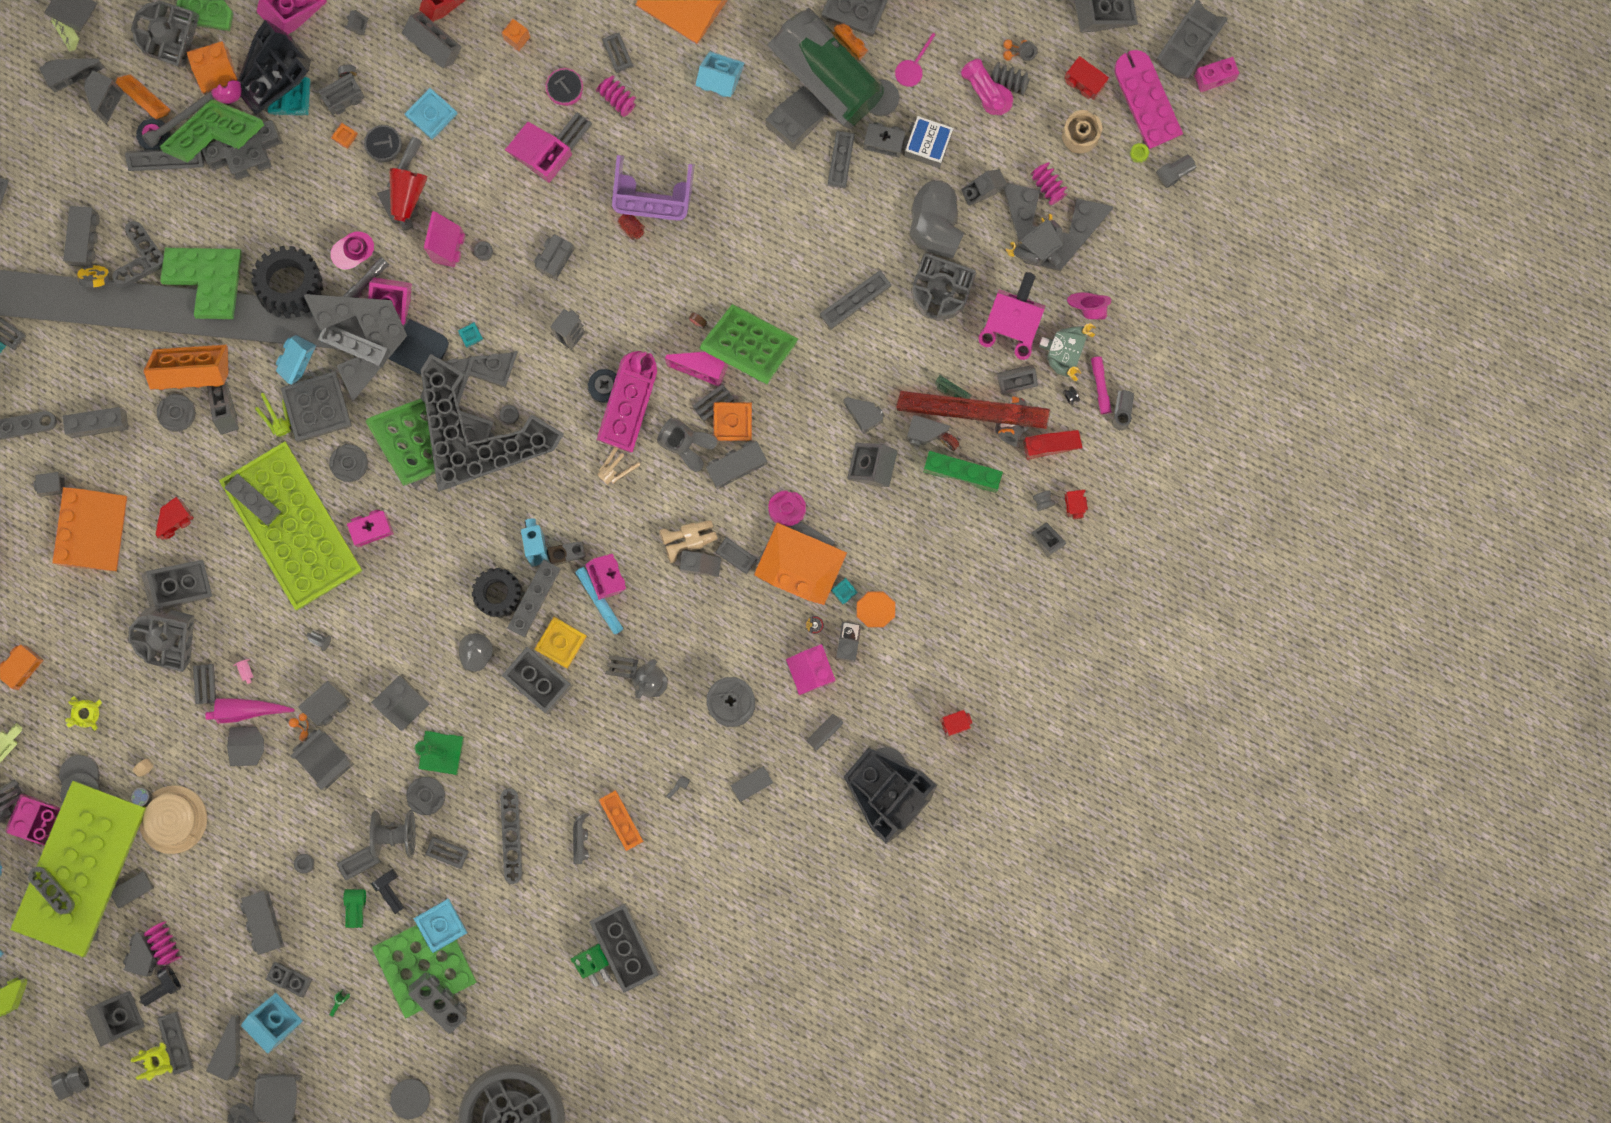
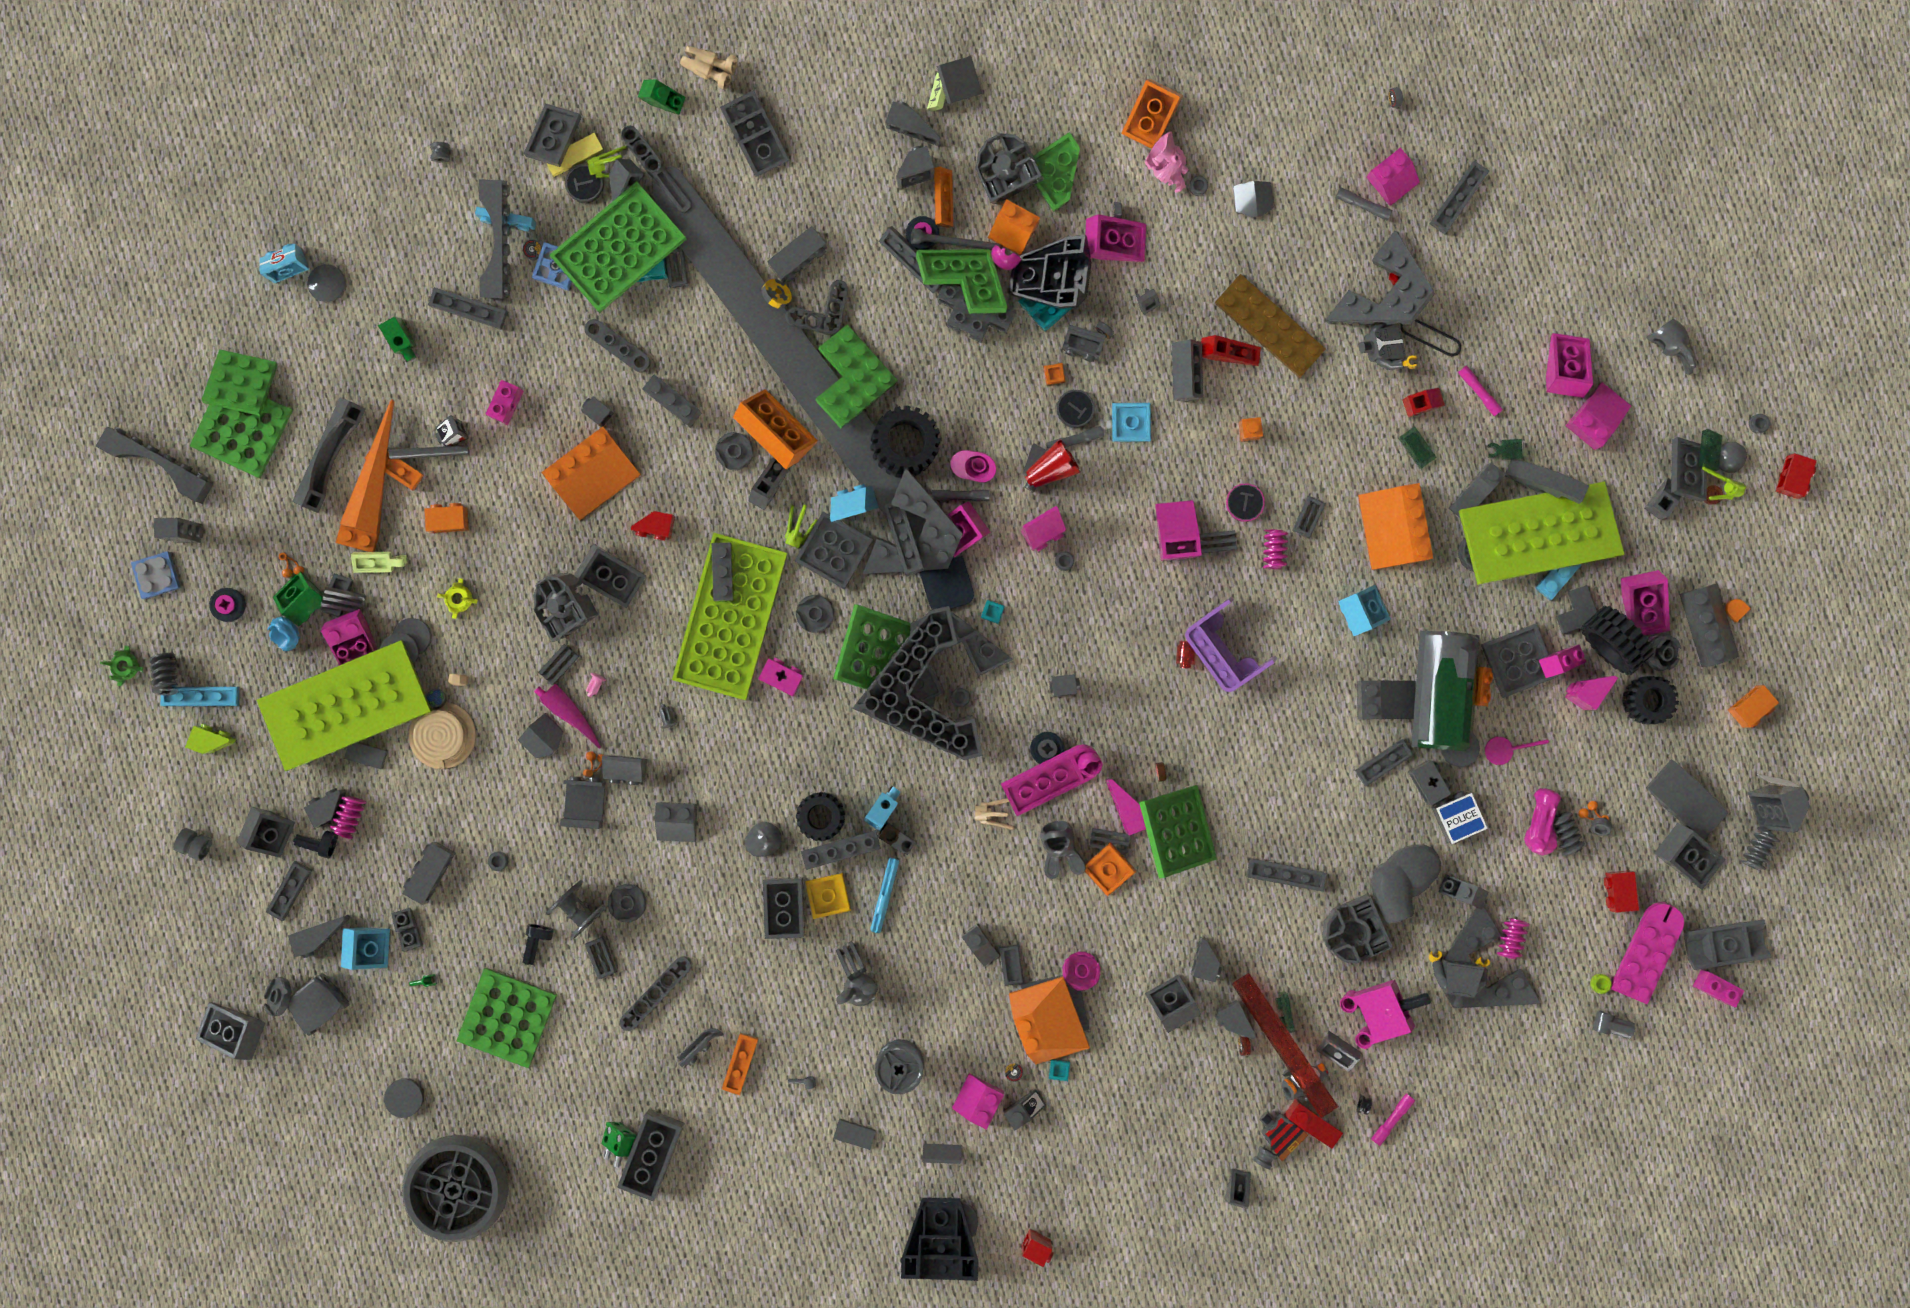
camera: 50 degrees right, 5 degrees up
(43, 890) = (317, 698): dark grey beam -> none
(146, 1056) = (264, 882): neon yellow piece -> none
(354, 901) = (503, 926): green piece -> none
(357, 863) = (534, 899): dark grey tile -> none
(438, 1012) = (488, 1057): dark grey brick -> none
(440, 752) = (666, 885): green tile -> none
(440, 925) = (544, 1005): medium azure tile -> none
(554, 256) = (1108, 619): dark grey brick -> none
(605, 576) = (906, 885): dark pink brick -> none
(692, 537) = (995, 918): tan piece -> none
(736, 464) = (1079, 902): dark grey brick -> none
(876, 609) = (1067, 1107): orange piece -> none
(958, 469) = (1230, 1077): green arch -> none
(1037, 473) = (1281, 1134): none -> torso
(1066, 349) = (1395, 1070): sand green torso -> none
(1076, 504) = (1284, 1184): red window -> none
(1086, 122) = (1587, 925): tan brick -> none
(1091, 305) = (1448, 1057): dark pink piece -> none
(1123, 409) = (1391, 1153): dark grey piece -> none

